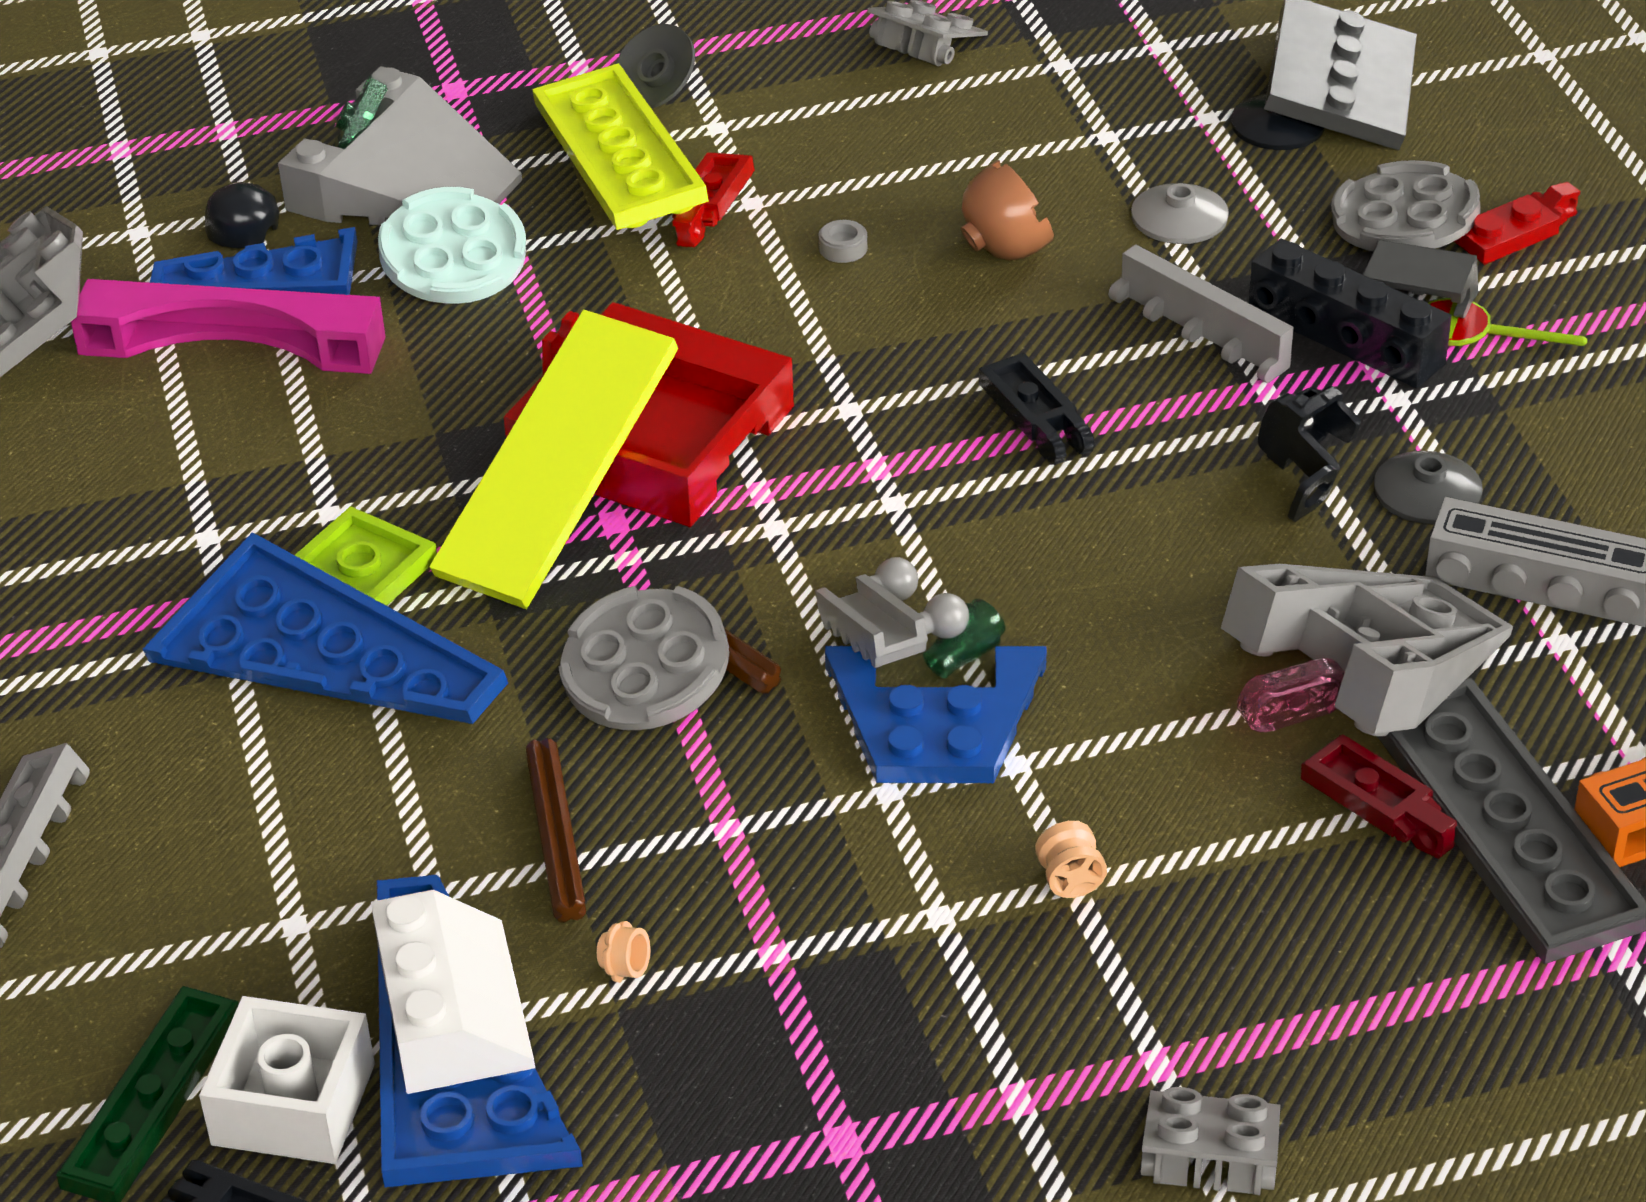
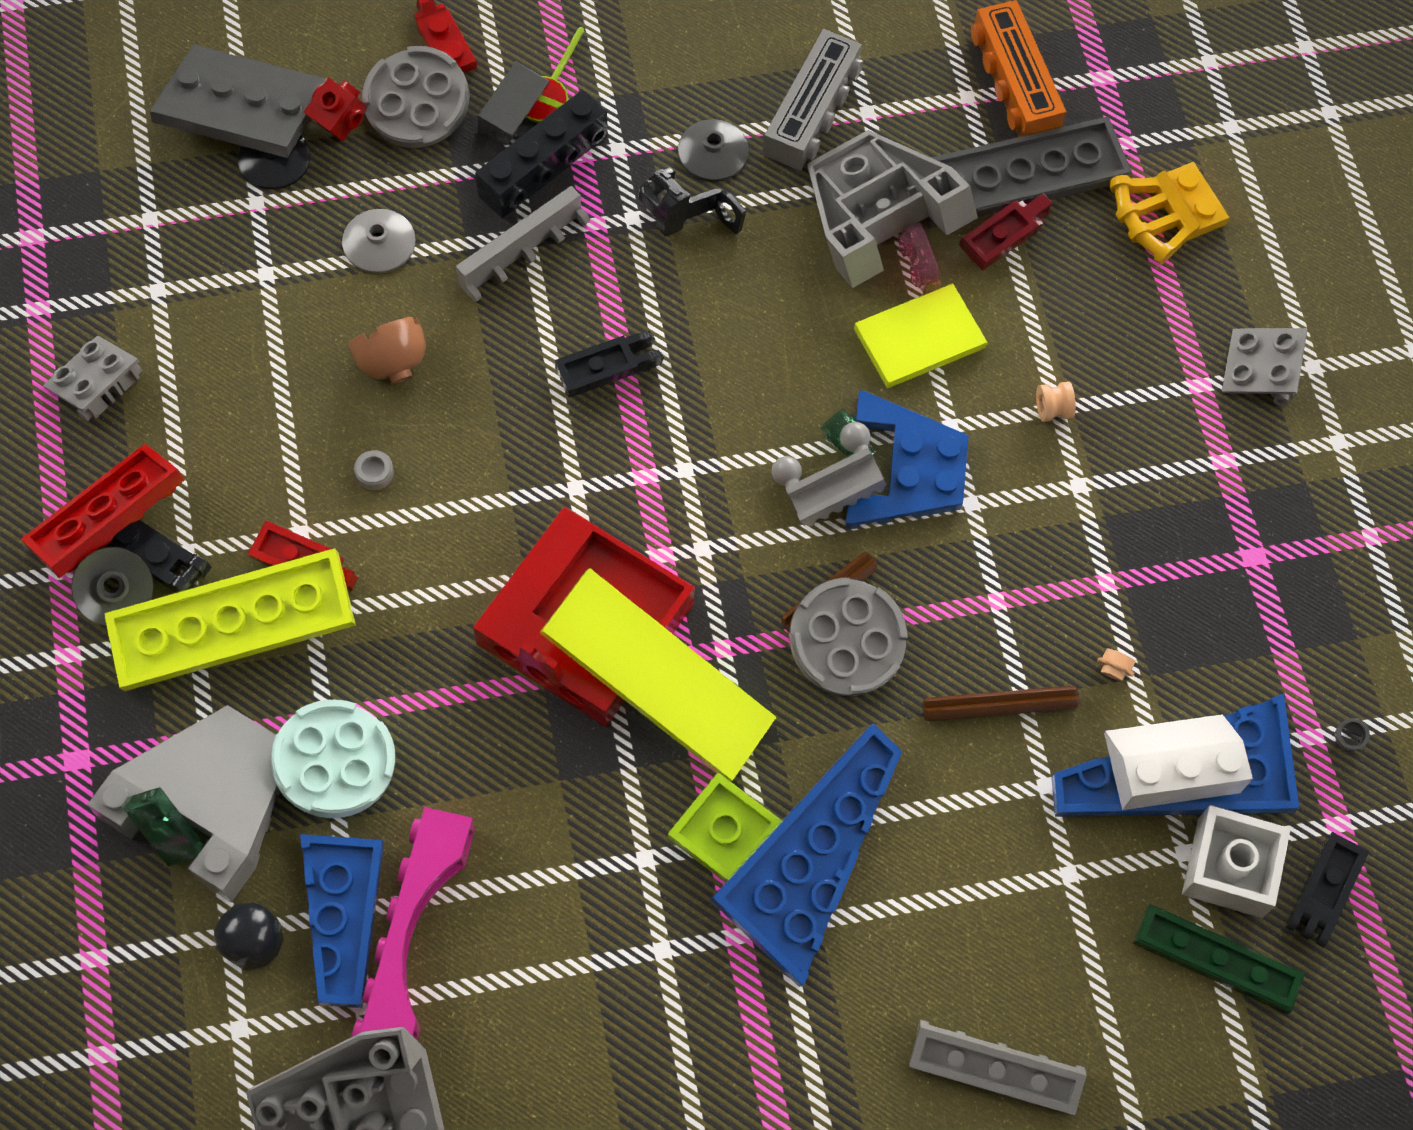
camera: 90 degrees left, 25 degrees up
(707, 99) = (161, 556): none -> black plate
(749, 46) = (103, 510): none -> red plate
(1162, 714) = (920, 335): none -> neon yellow tile
(1351, 136) = (336, 108): none -> red brick
(1514, 1036) = (1184, 196): none -> yellow plate

